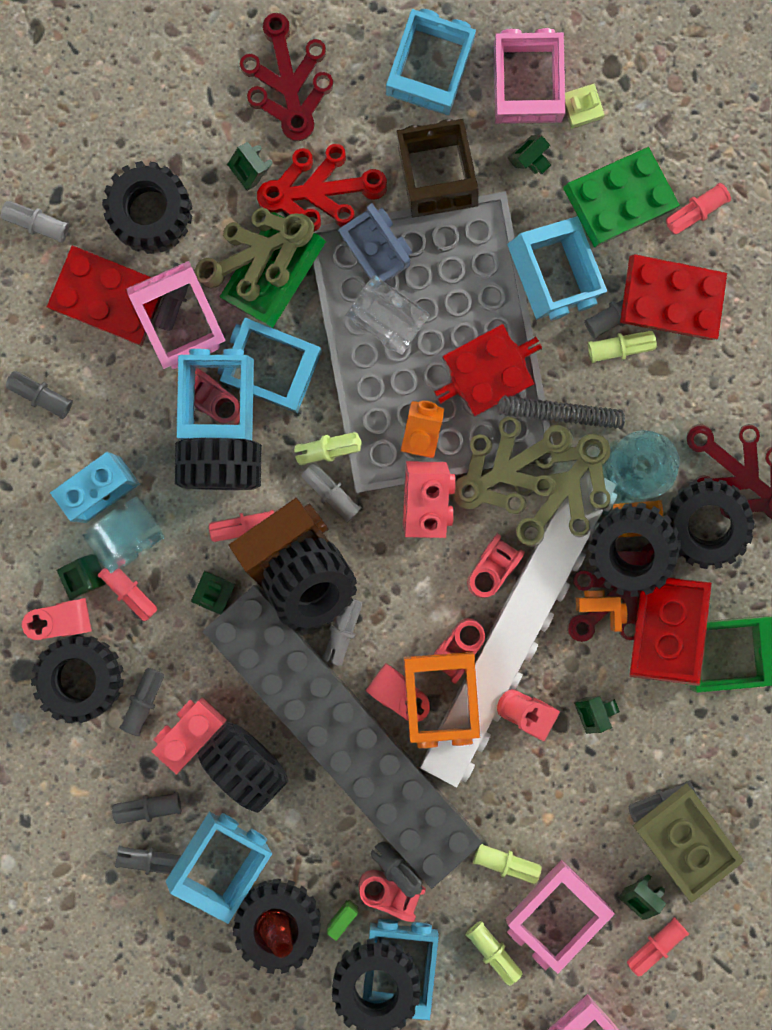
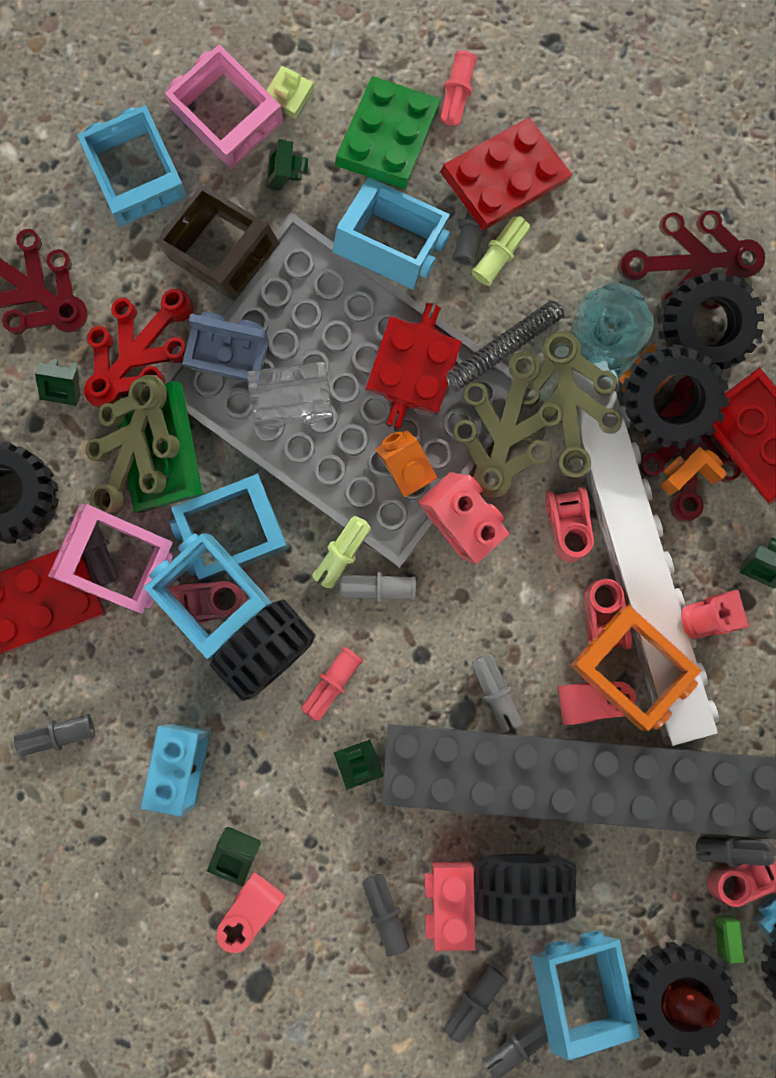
camera: 45 degrees left, 5 degrees down
(49, 679) = (303, 981): black tyre -> none
(123, 535) = (237, 786): clear light blue brick -> none
(129, 593) = (285, 831): coral axle -> none
(274, 533) = (376, 666): reddish brown window -> none
(309, 584) = (434, 678): black tyre -> none

